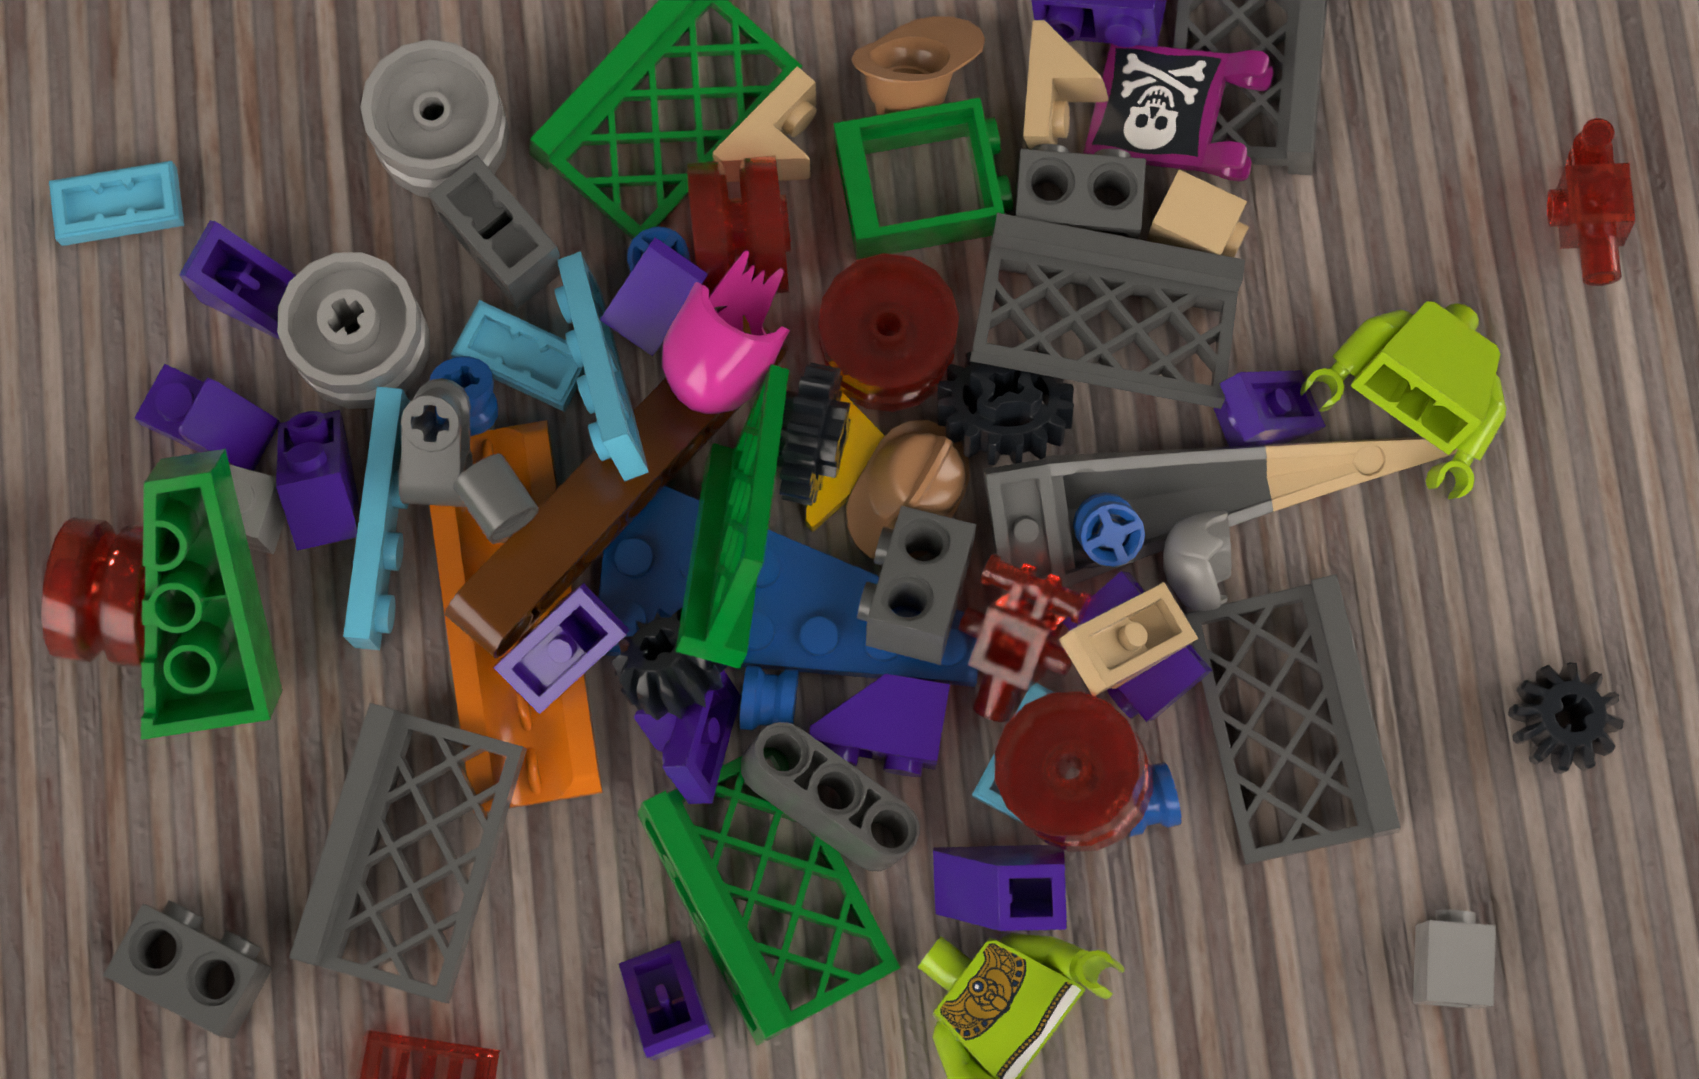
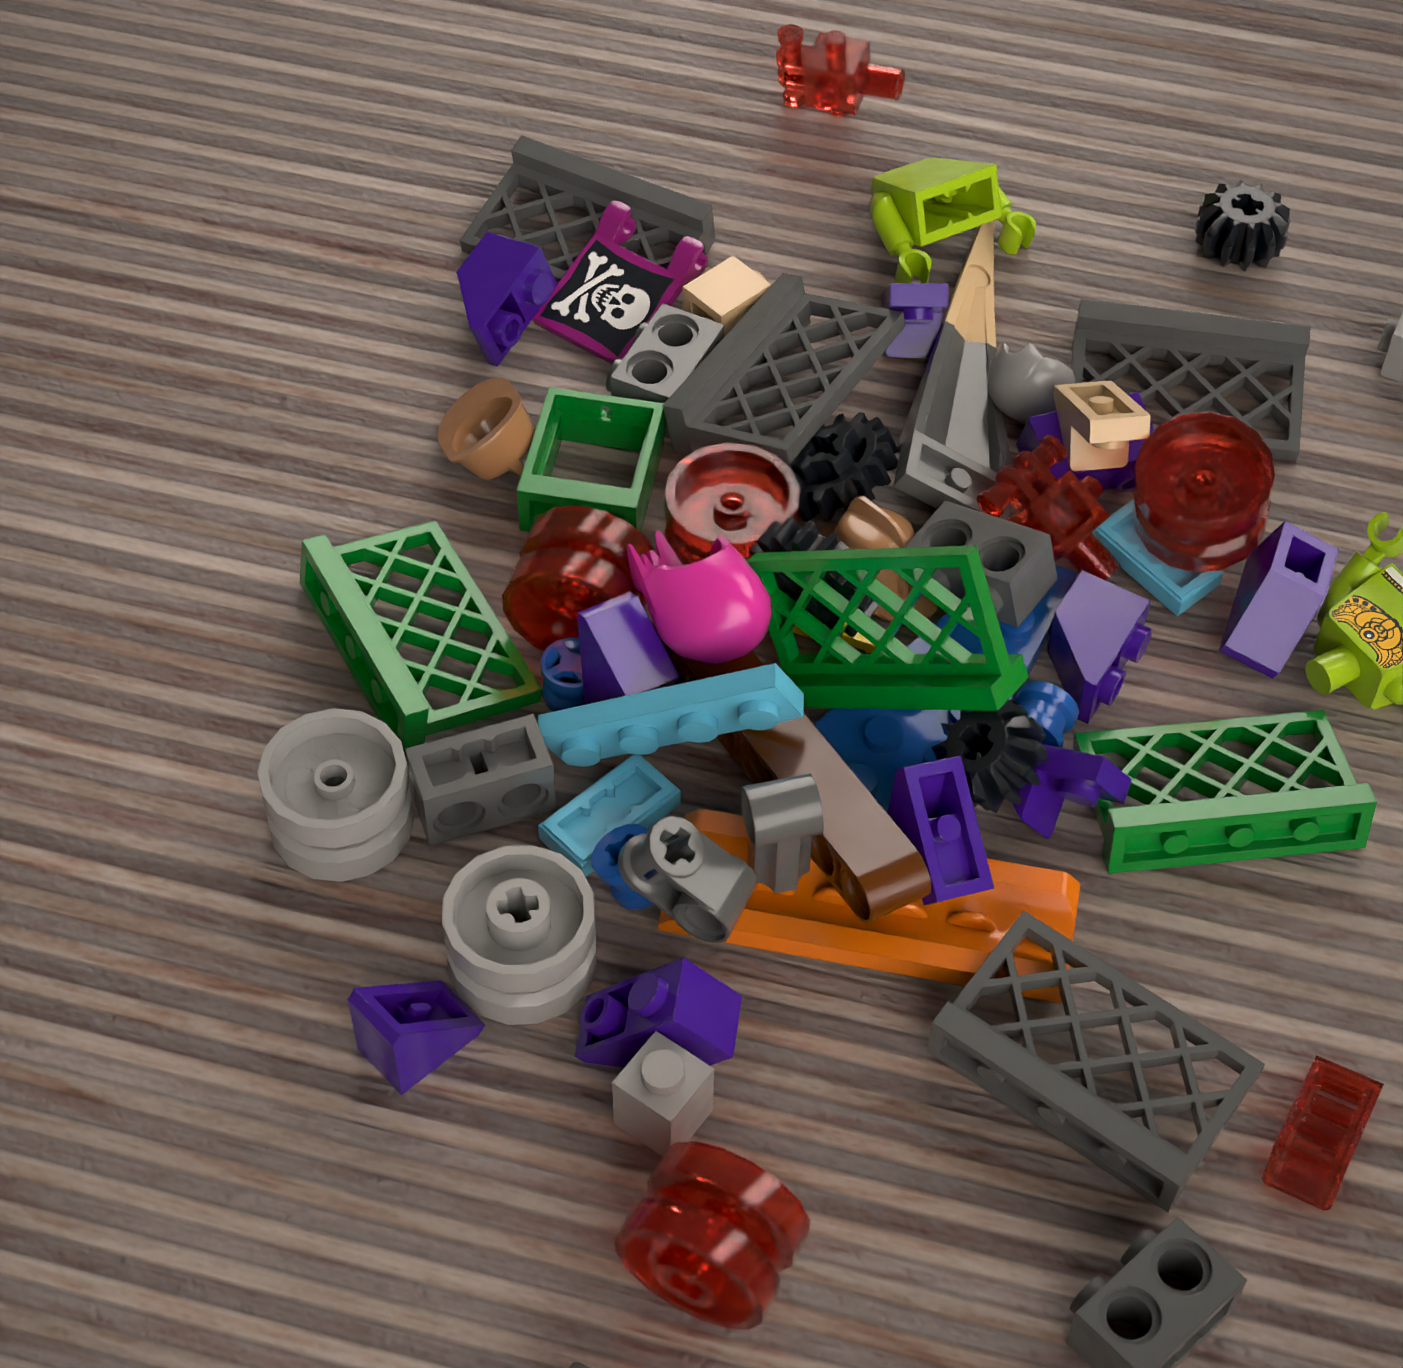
camera: 70 degrees left, 25 degrees down
(116, 203) = (255, 1127): medium azure plate -> none
(202, 607) = (810, 1132): green wedge -> none
(207, 417) = (539, 1120): dark purple slope -> none
(377, 542) = (770, 1000): medium azure plate -> none
(665, 1001) = (1316, 889): dark purple slope -> none
(765, 130) = (484, 549): tan slope -> none
(861, 797) = (1153, 695): dark grey beam -> none
(1055, 78) = (553, 350): tan slope -> none
(1116, 540) = (981, 427): blue wheel -> none

